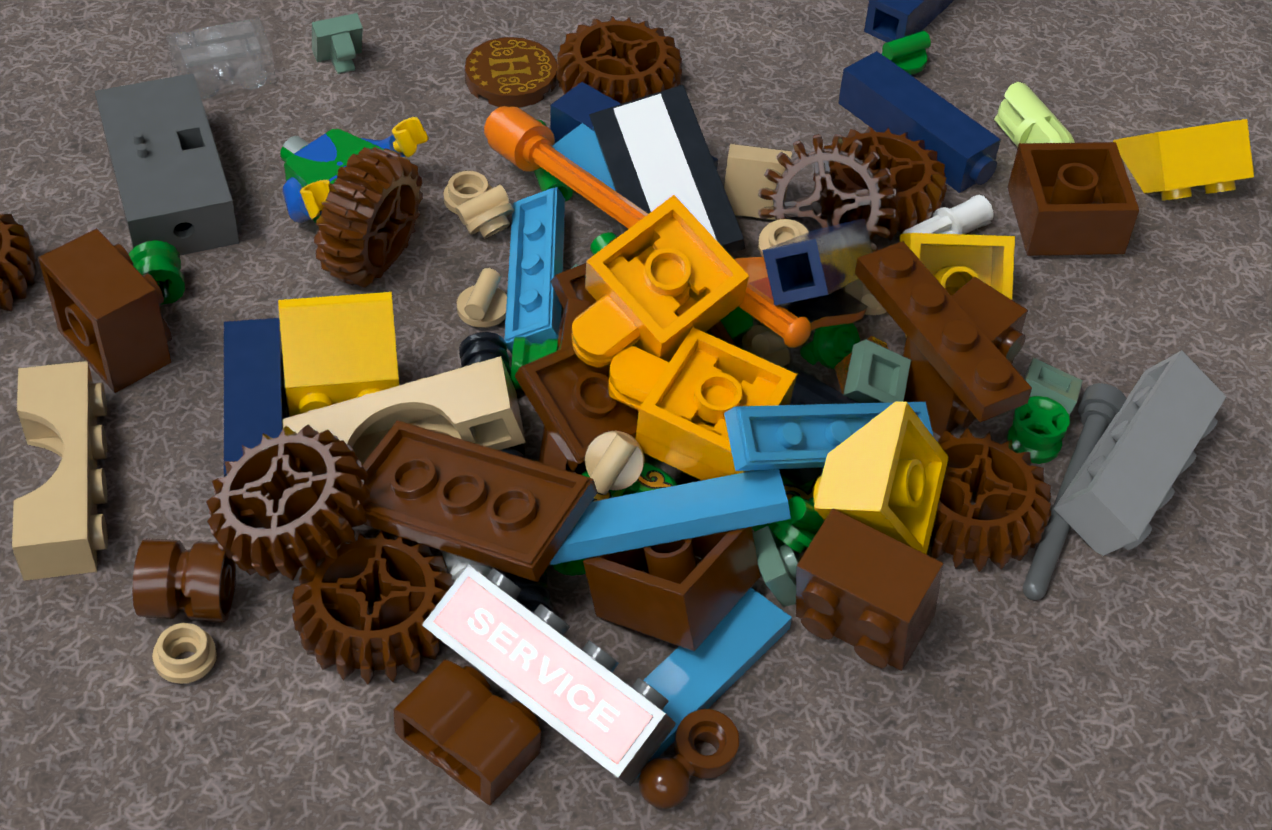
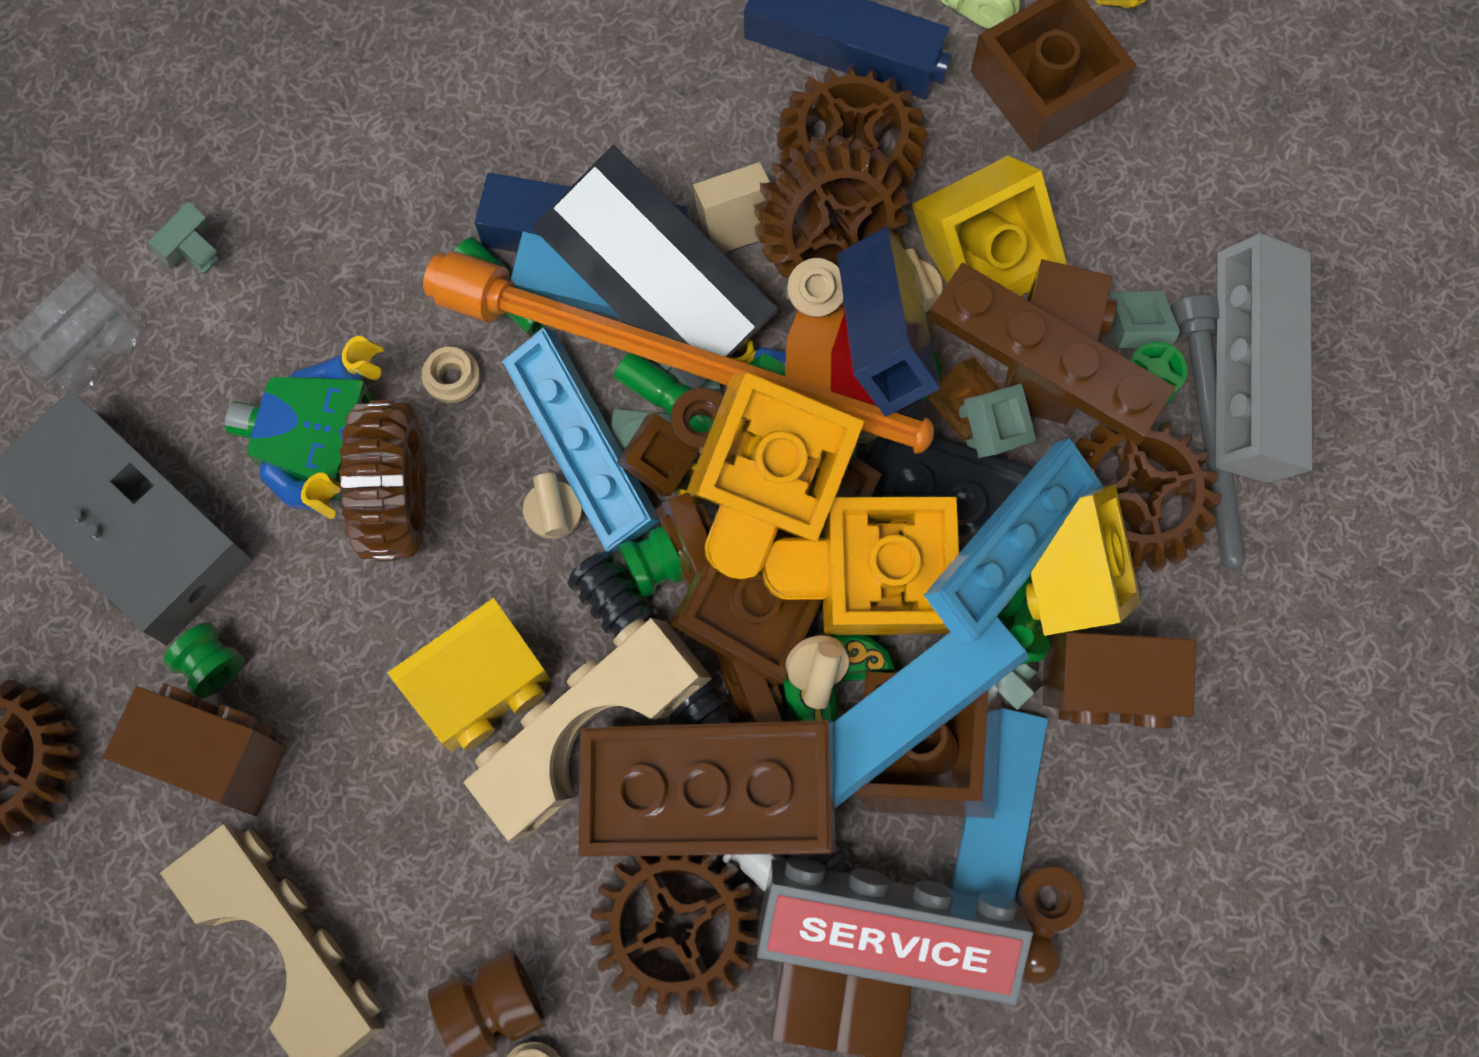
camera: 25 degrees left, 25 degrees up
(252, 384) = (420, 776): dark blue brick -> none
(298, 488) = (561, 913): reddish brown gear -> none
(486, 212) = (487, 392): tan plate -> none
(510, 71) = (388, 177): reddish brown tile -> none
(619, 59) = (498, 89): reddish brown gear -> none
(958, 219) = (944, 154): white axle -> none

